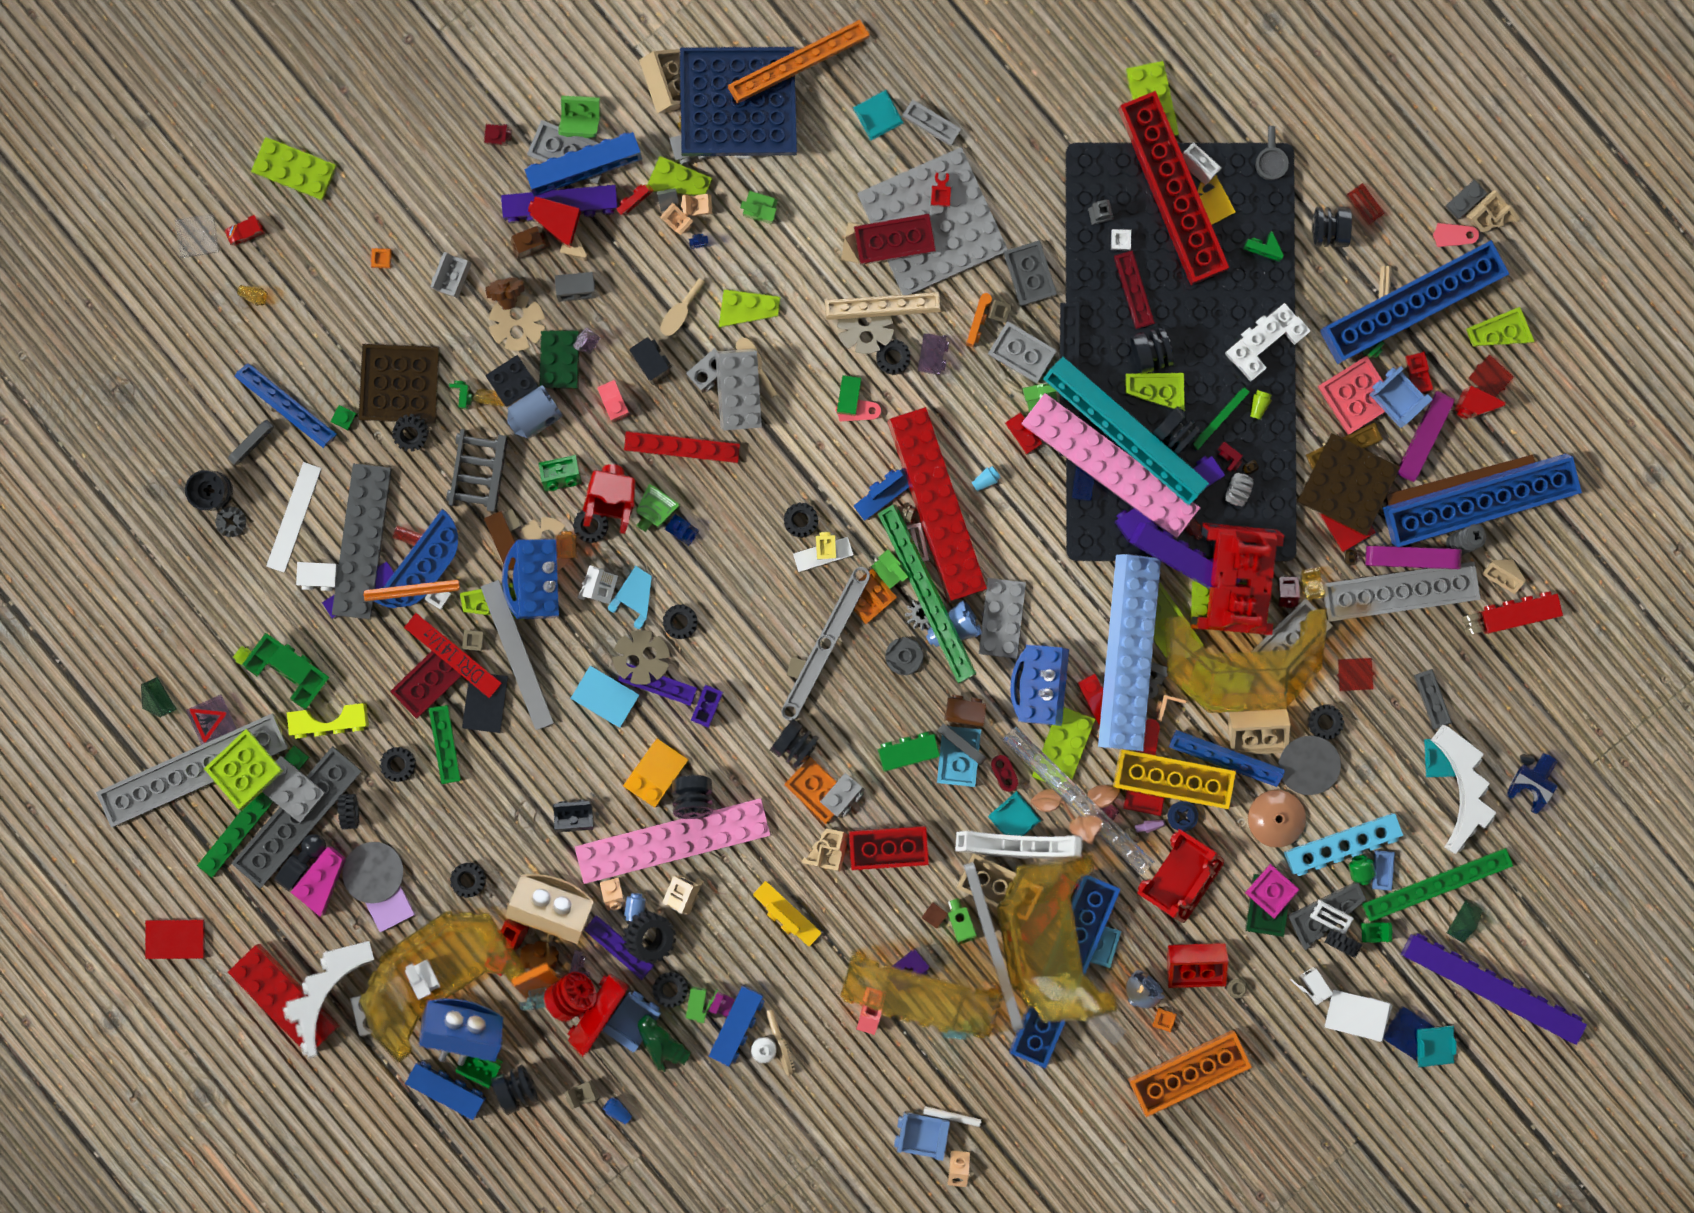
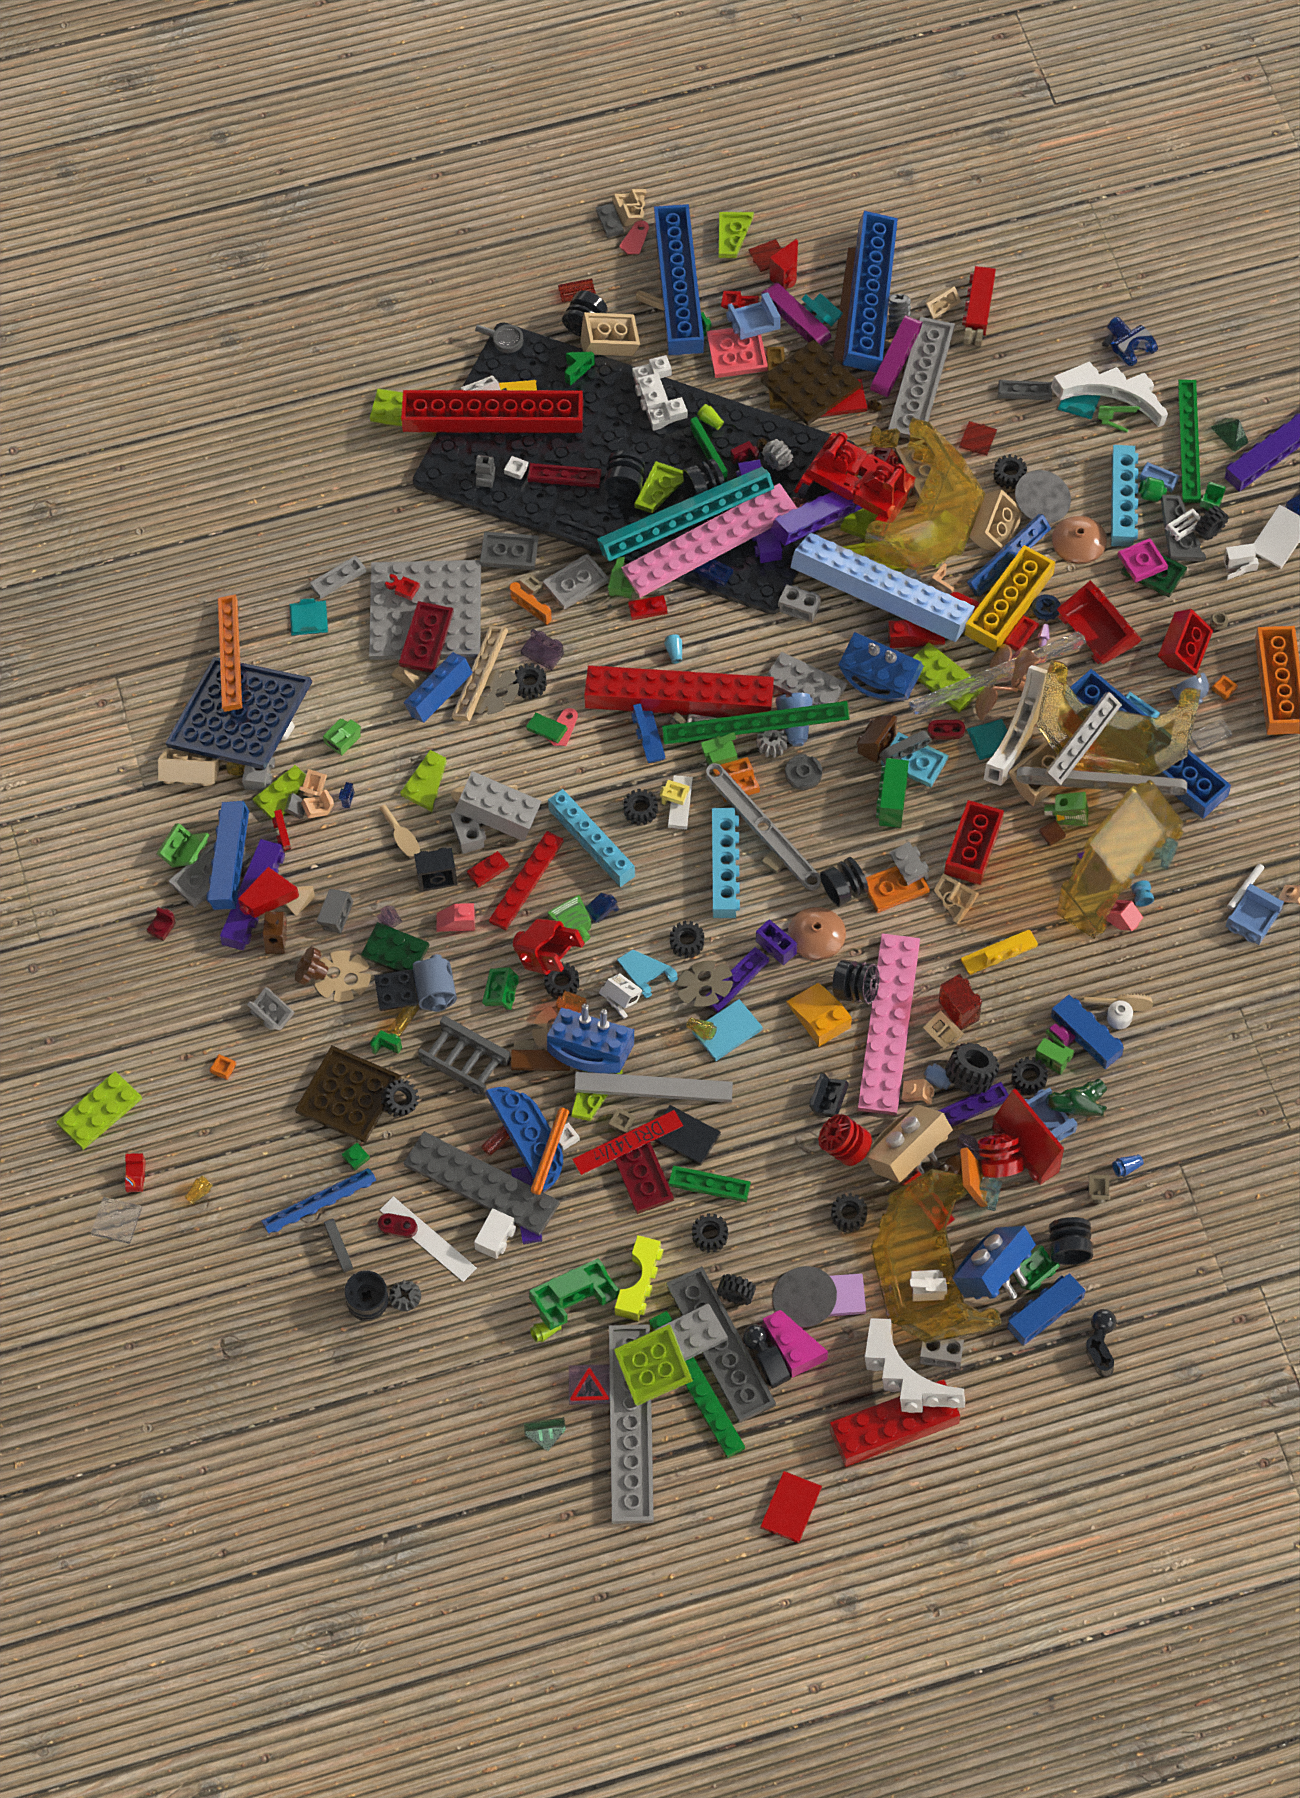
camera: 65 degrees left, 25 degrees down
(293, 484) = (396, 1227): none -> dark red plate
(452, 1147) = (1102, 1322): none -> black beam
(528, 850) = (845, 1140): none -> red wheel
(591, 674) = (702, 1028): none -> clear yellow cone
(678, 406) = (488, 869): none -> red plate
(713, 899) = (960, 1002): none -> clear red brick
(726, 637) = (722, 819): none -> medium azure brick
(747, 488) = (591, 838): none -> medium azure brick
(753, 737) = (821, 942): none -> nougat dish
(846, 274) = (438, 687): none -> blue brick
(901, 1026) = (1142, 893): none -> dark azure wheel
(1024, 915) = (1082, 739): none -> light grey plate
(1081, 577) = (798, 607): none -> light grey brick
(1316, 262) = (609, 334): none -> tan slope
(1436, 791) = (1107, 412): none -> bright green plant
(1441, 460) = (823, 307): none -> teal bracket

